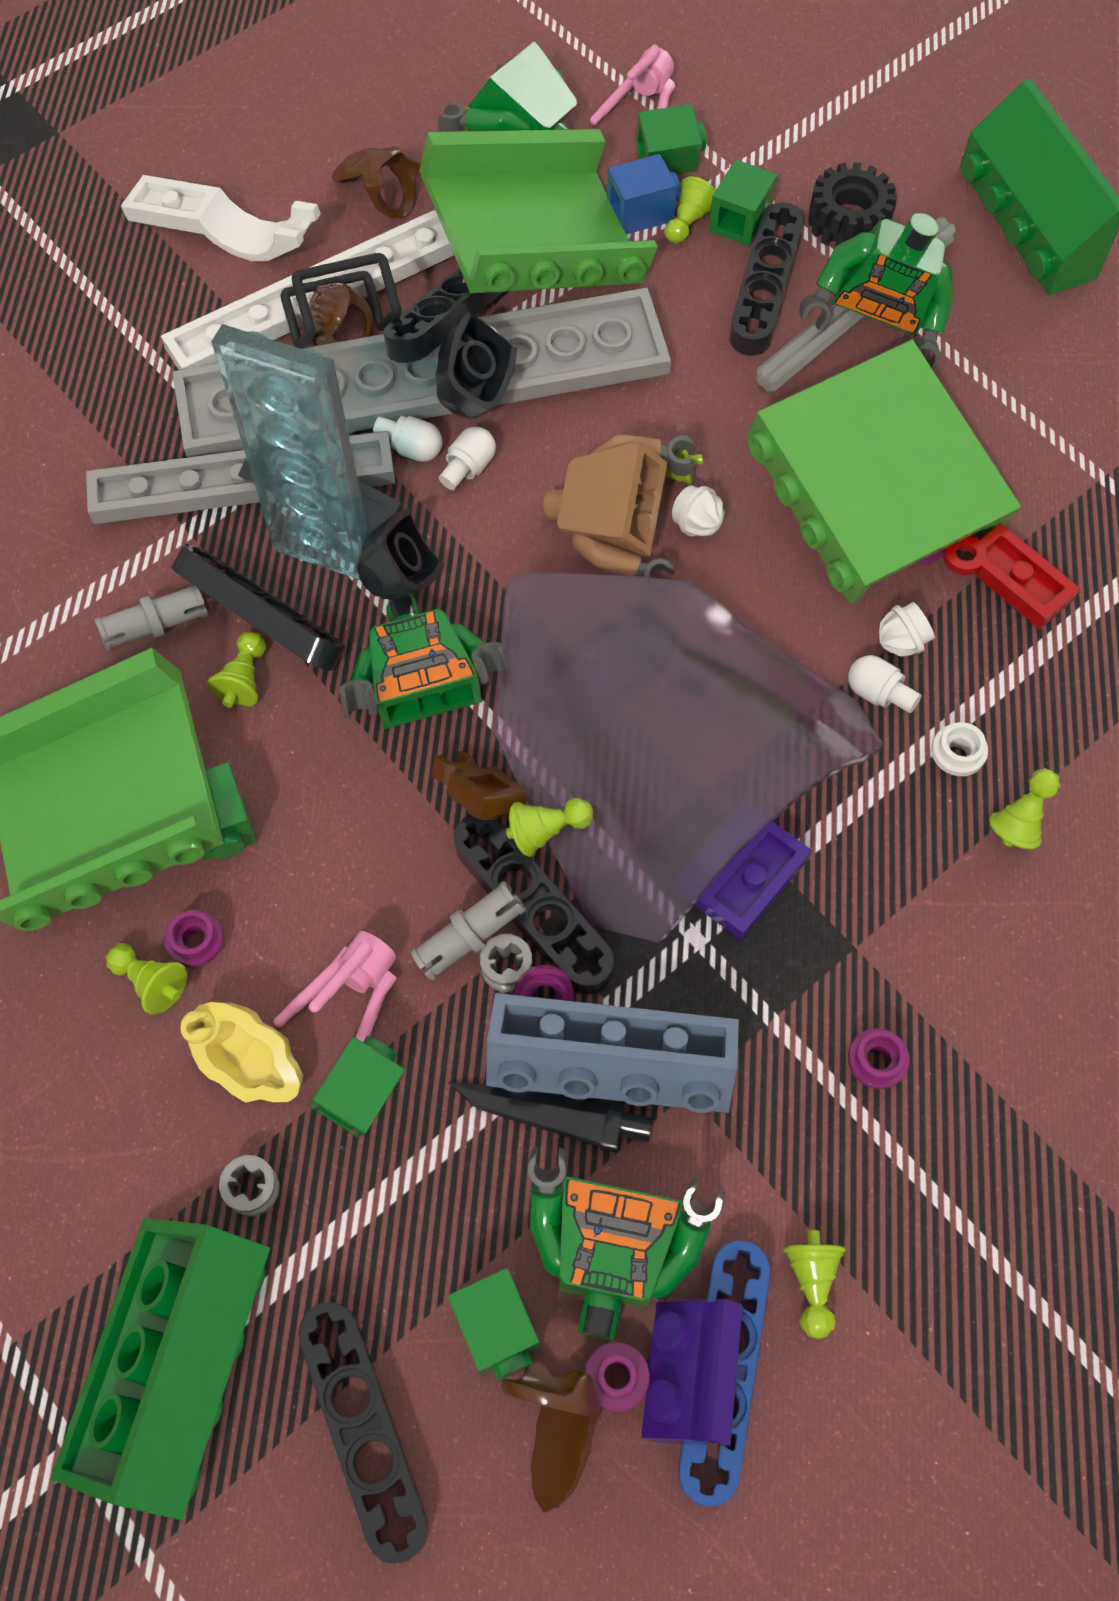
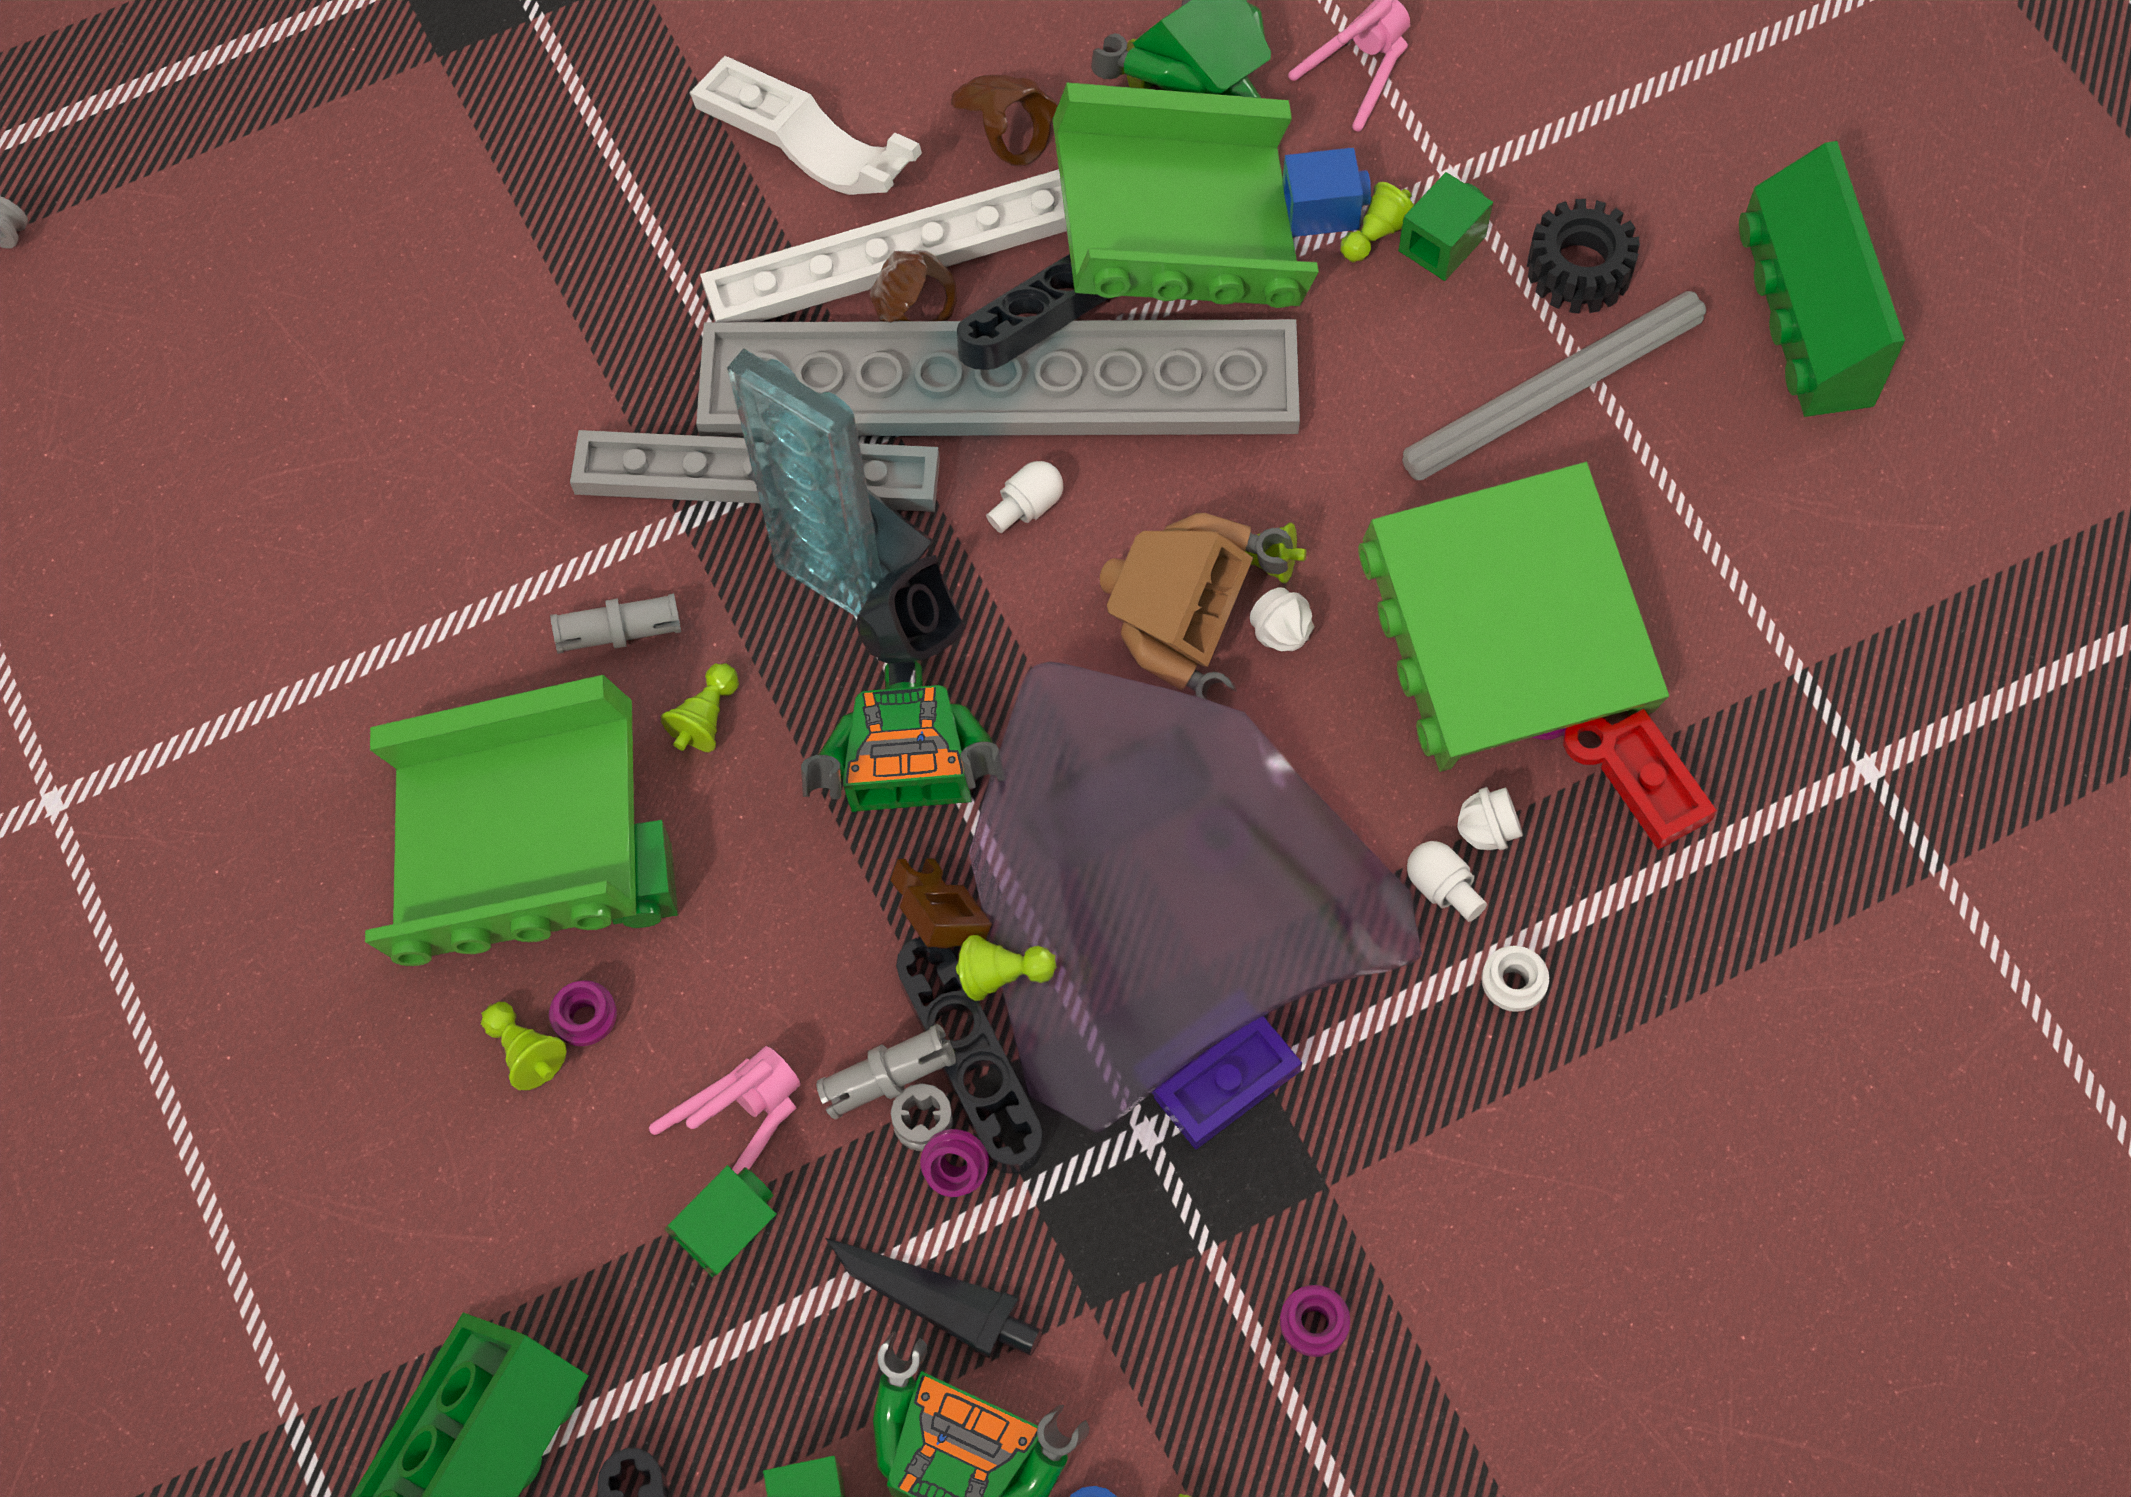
camera: 15 degrees right, 0 degrees up
(241, 1203) = (596, 1286): light grey bush -> none
(242, 1052) = (606, 1155): light yellow arm -> none
(258, 607) = (739, 637): black beam -> none
(299, 290) = (863, 275): black piece -> none
(411, 437) = (966, 458): white cylinder -> none
(473, 367) = (1054, 392): black piece -> none
(612, 1053) = (1008, 1247): sand blue brick -> none
(673, 135) = (1377, 125): green brick -> none
(766, 277) = (1447, 328): black beam -> none
(890, 277) = (1592, 370): green torso -> none
(1021, 821) = (1559, 1080): lime piece -> none

